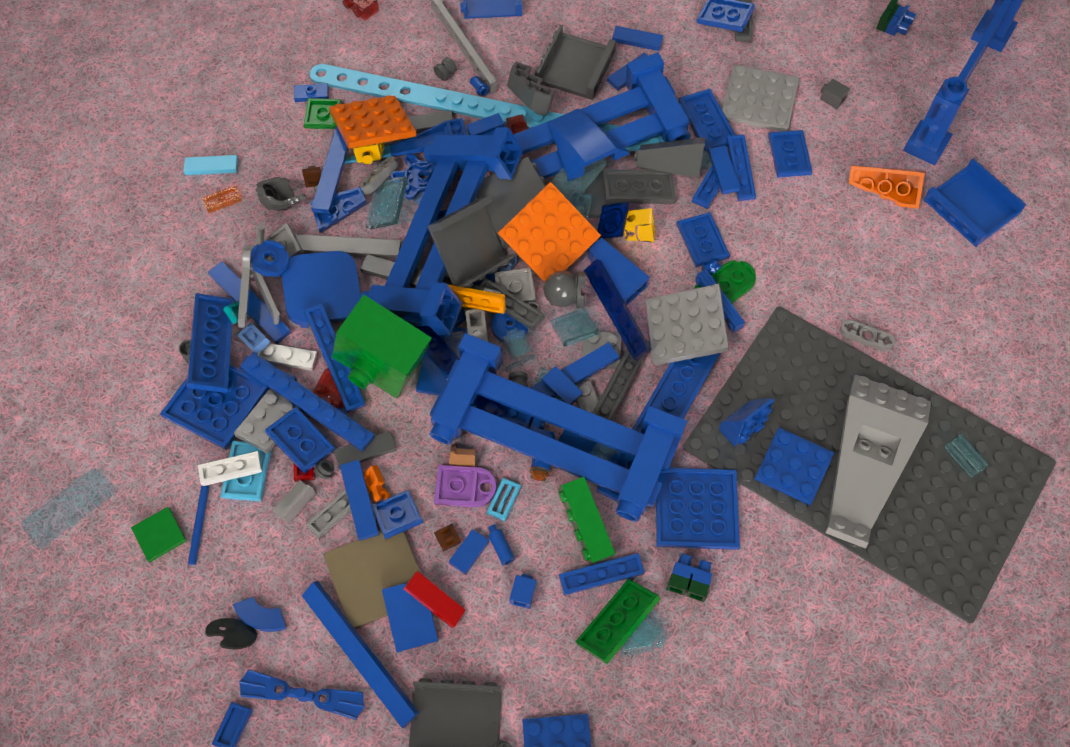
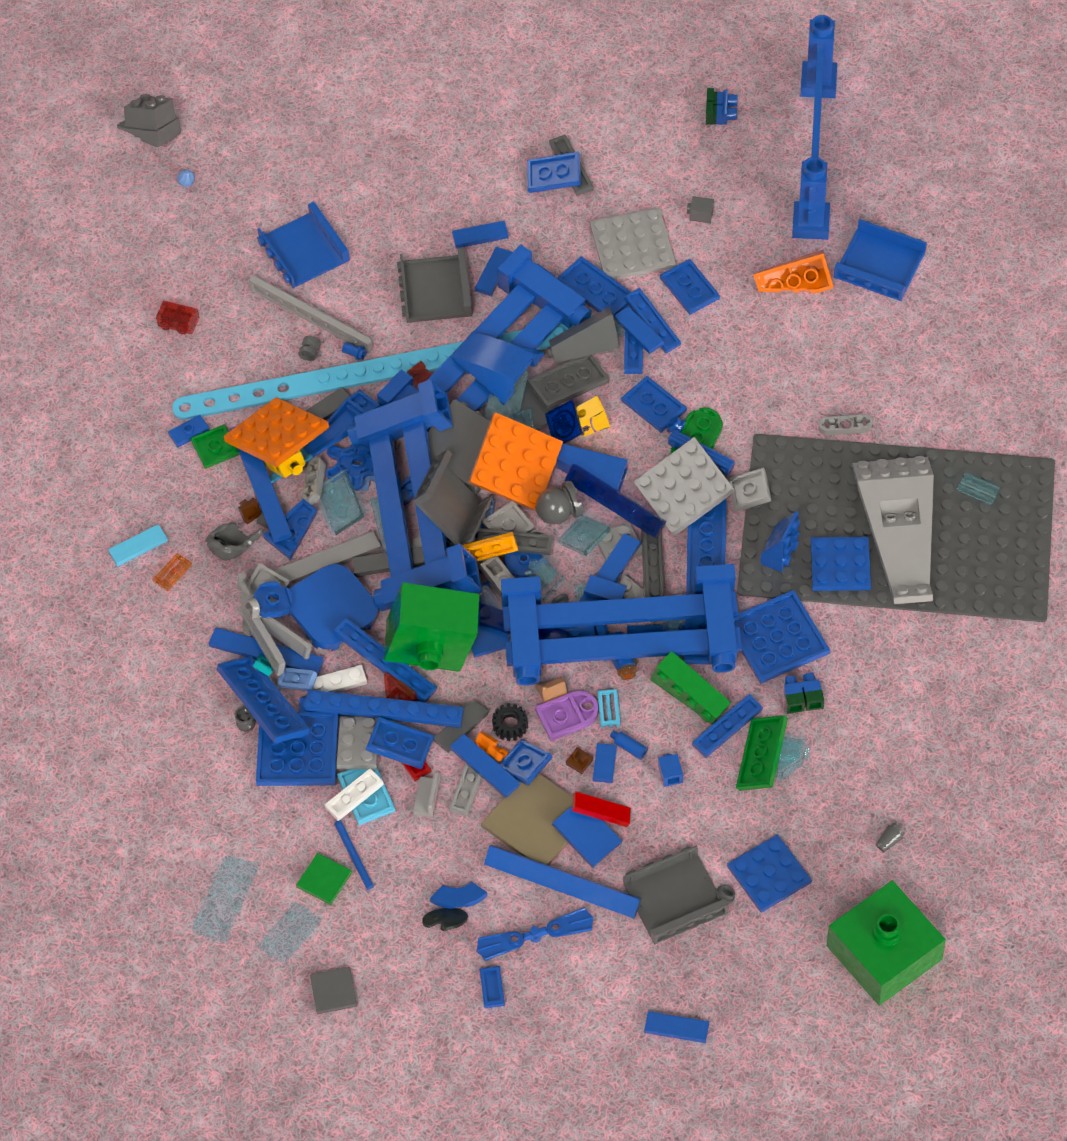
camera: 25 degrees left, 5 degrees down
(94, 650) = (333, 990): none -> dark grey tile
(96, 571) = (289, 933): none -> clear light blue piece
(324, 469) = (436, 757): dark grey plate -> none
(408, 457) = (510, 732): none -> black tyre
(529, 89) = (410, 332): dark grey brick -> none
(746, 355) = (750, 489): none -> light grey tile

